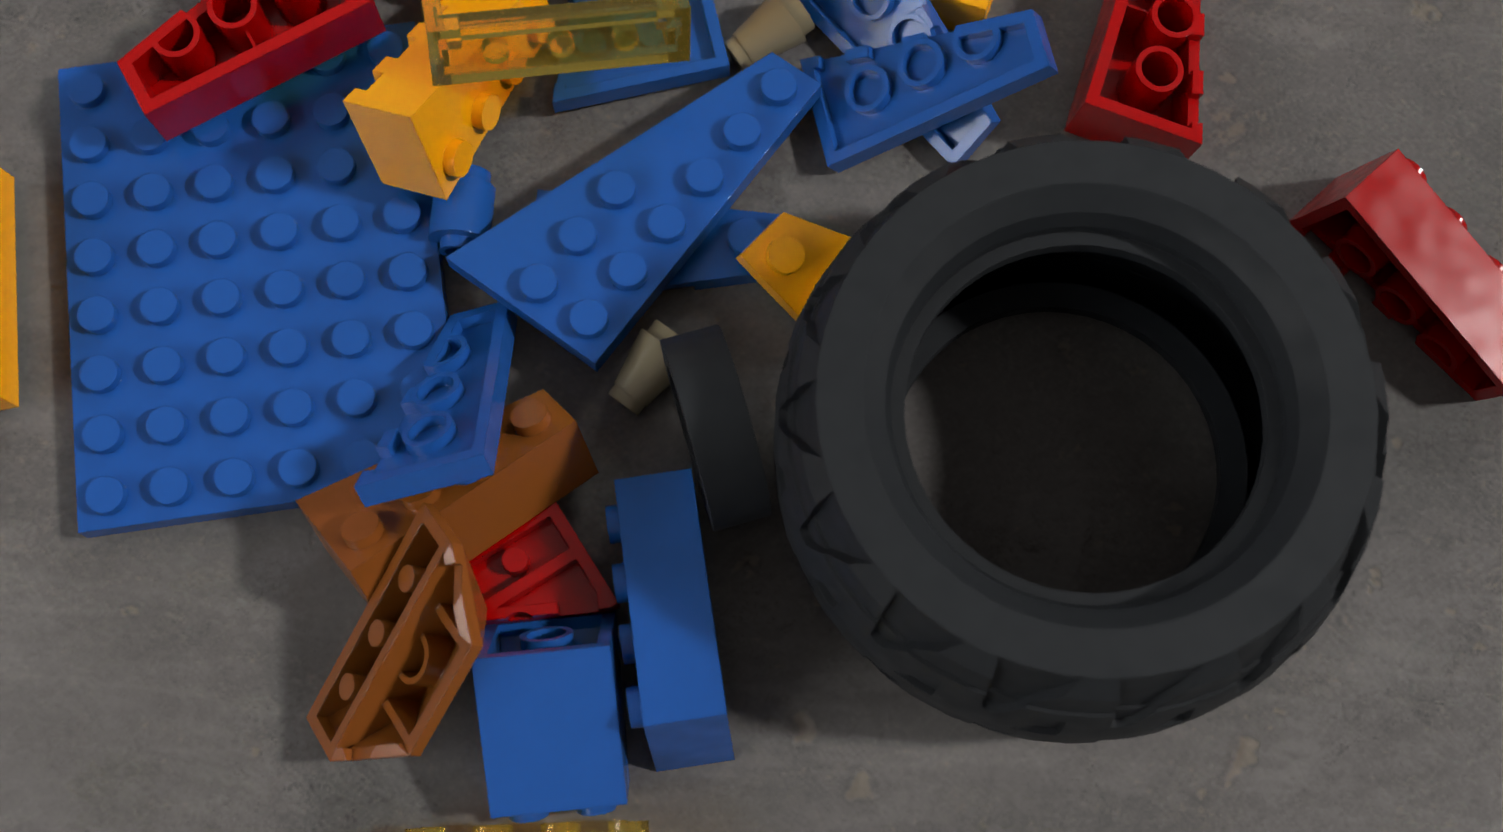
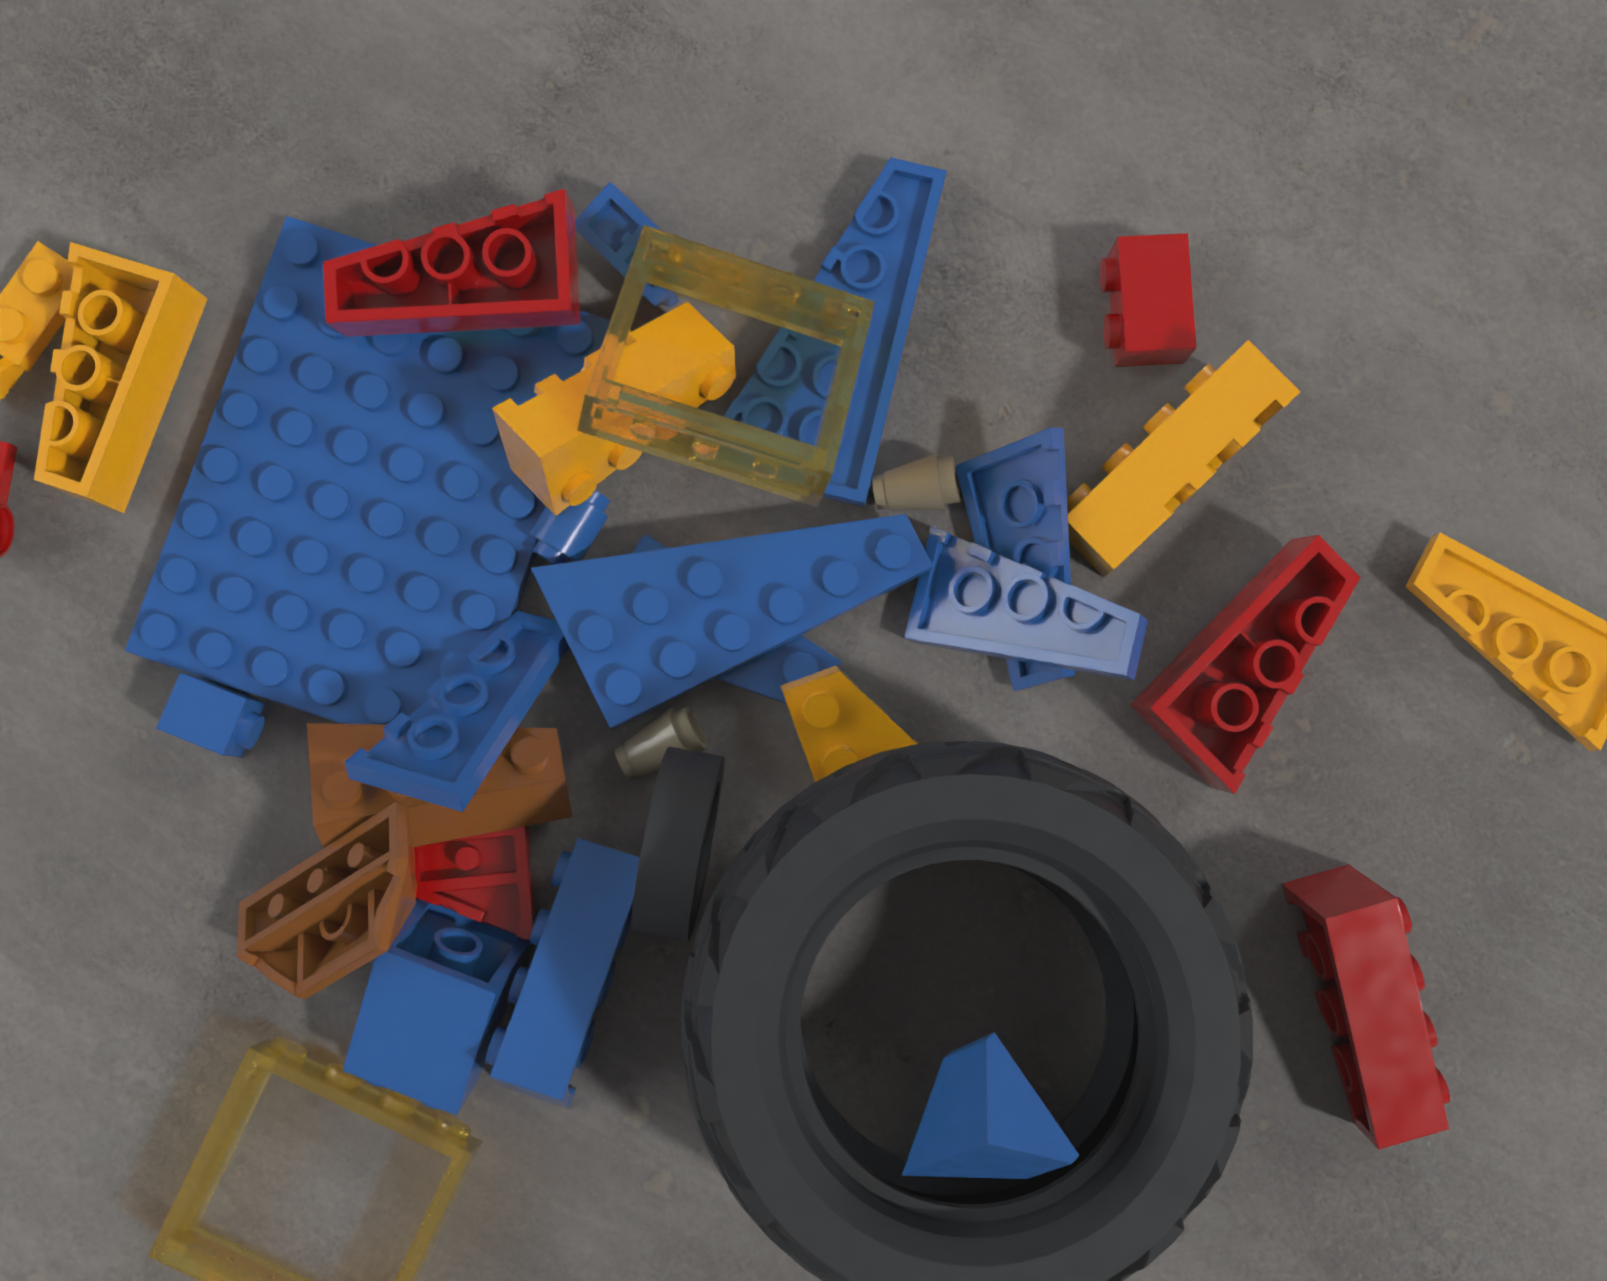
camera: 25 degrees right, 10 degrees up
(196, 549) = (212, 716): none -> blue brick
(1148, 455) = (986, 1120): none -> blue slope

